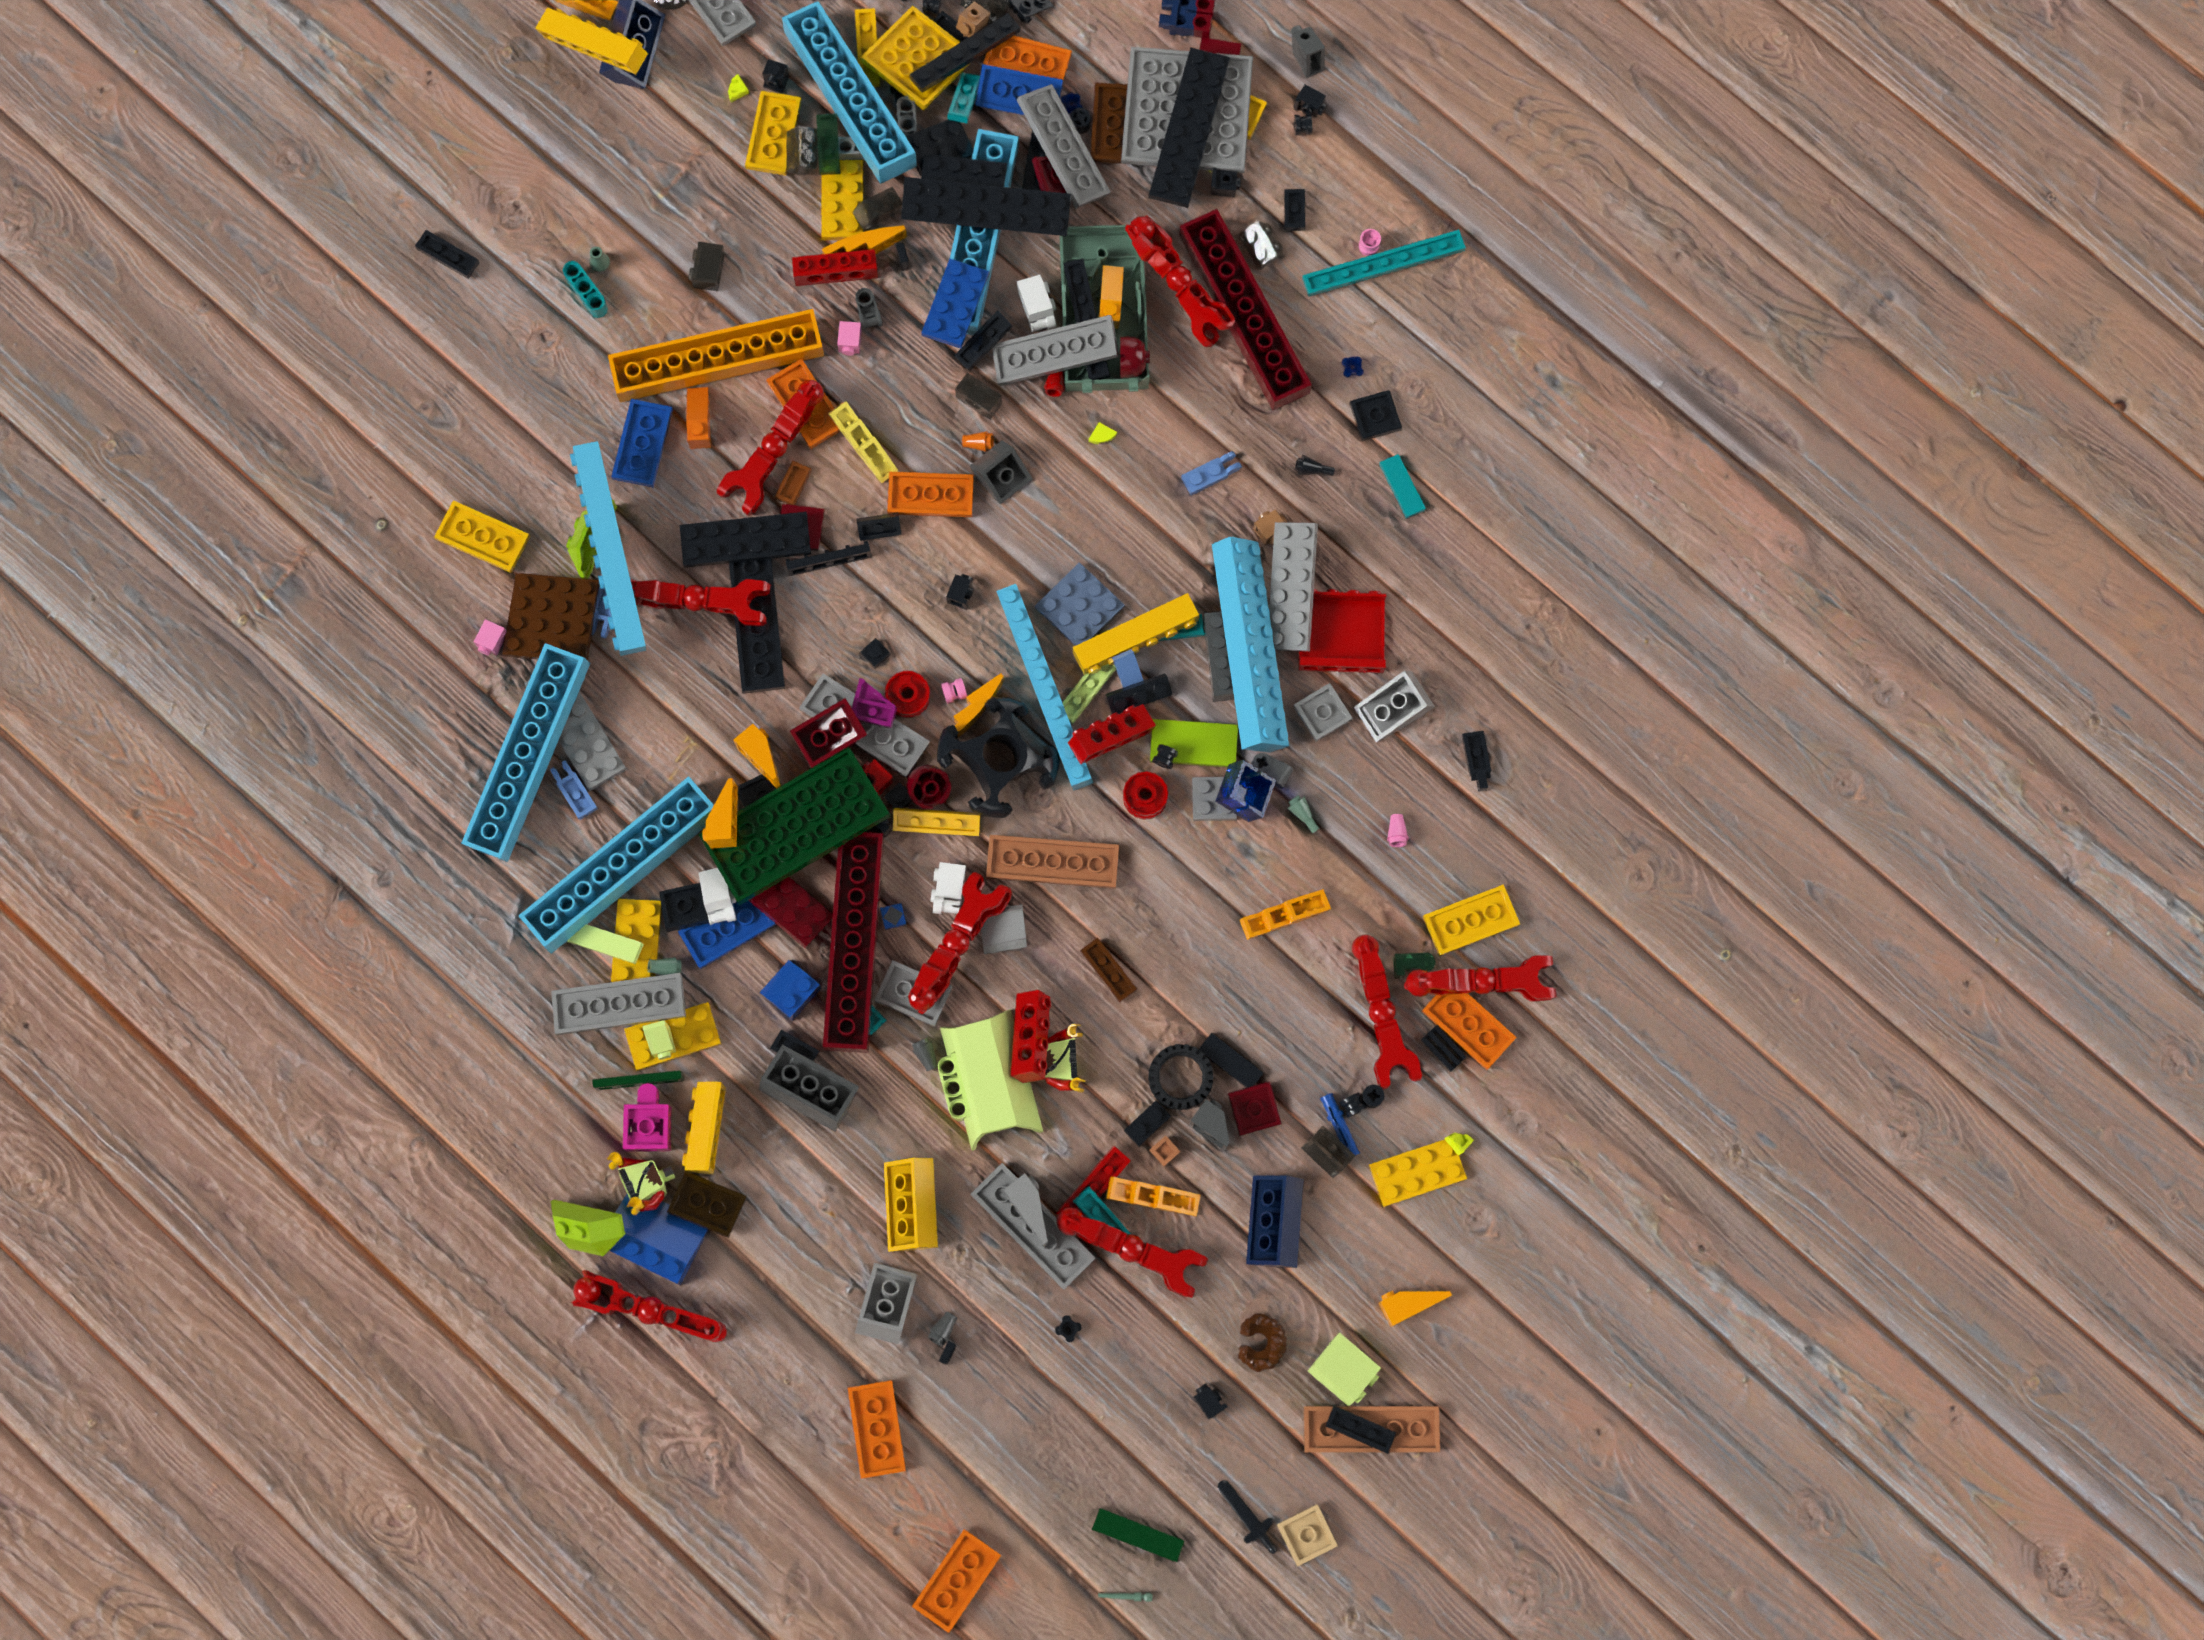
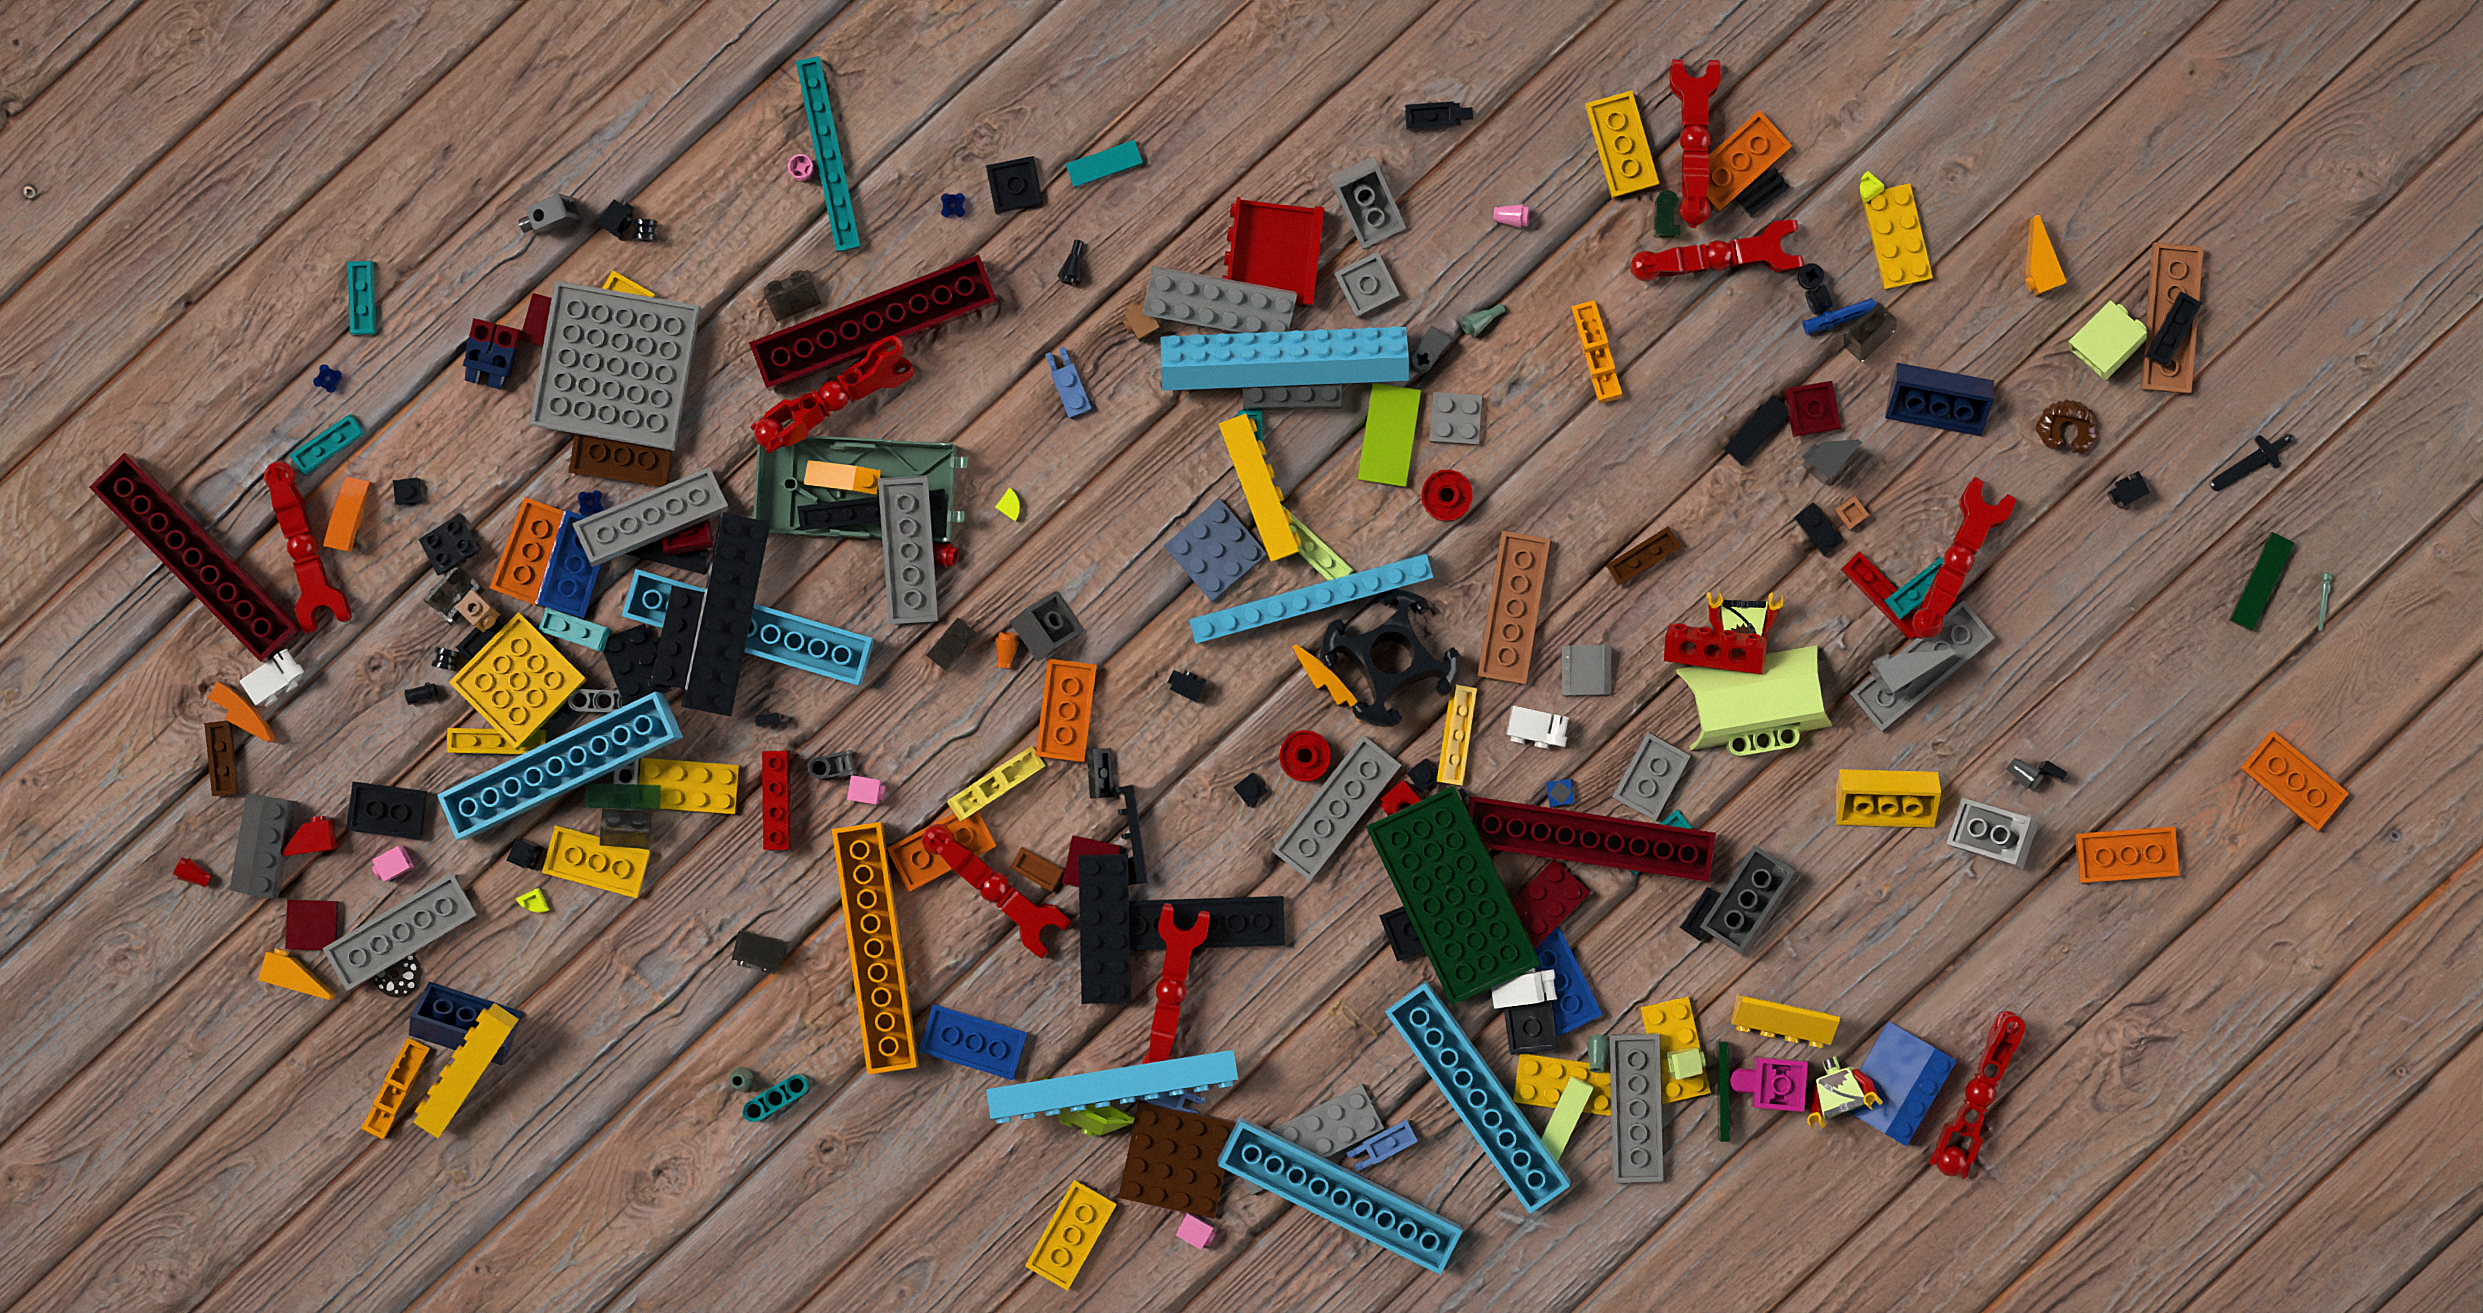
camera: 75 degrees left, 10 degrees up
(447, 254) = (715, 1259): black plate -> none
(586, 1227) = (1886, 1156): lime wedge -> none
(698, 418) = (946, 974): orange slope -> none
(707, 1204) = (1868, 1023): dark brown plate -> none
(722, 820) = (1444, 976): light orange slope -> none
(756, 749) = (1358, 930): light orange slope -> none
(791, 990) = (1634, 914): blue slope -> none
(828, 733) = (1347, 849): dark red slope -> none
(872, 706) = (1319, 796): magenta wing -> none
(874, 239) = (746, 754): light orange slope -> none
(877, 208) = (708, 743): clear smoke brick -> none
(925, 1053) = (1718, 769): dark grey cone -> none
(928, 786) = (1417, 740): dark red cylinder -> none
(949, 692) = (1307, 707): bright pink wheel -> none
(955, 303) = (841, 661): blue plate -> none
(964, 53) = (519, 624): black plate -> none
(976, 909) = (1601, 722): red piece -> none
(983, 340) = (885, 632): black plate -> none
(1036, 303) = (843, 566): white hinge -> none
(1067, 1322) = (2035, 629): black plate -> none
(1082, 116) = (611, 491): black wheel -> none
(1087, 749) = (1395, 556): red brick -> none
(1127, 668) = (1302, 500): medium blue tile -> none
(1132, 357) = (926, 459): dark red cylinder -> none
(1139, 693) = (1327, 491): black plate -> none
(1153, 1196) = (1900, 530): light orange slope -> none
(1165, 756) = (1406, 468): black wheel -> none
(1189, 127) = (641, 365): black plate -> none
(1190, 1052) = (1784, 460): black tyre -> none
(1222, 188) = (712, 339): black brick -> none
(1243, 794) = (1456, 381): clear blue piece -> none
(1294, 210) = (751, 251): black plate -> none
(1307, 1535) = (2277, 399): tan plate -> none

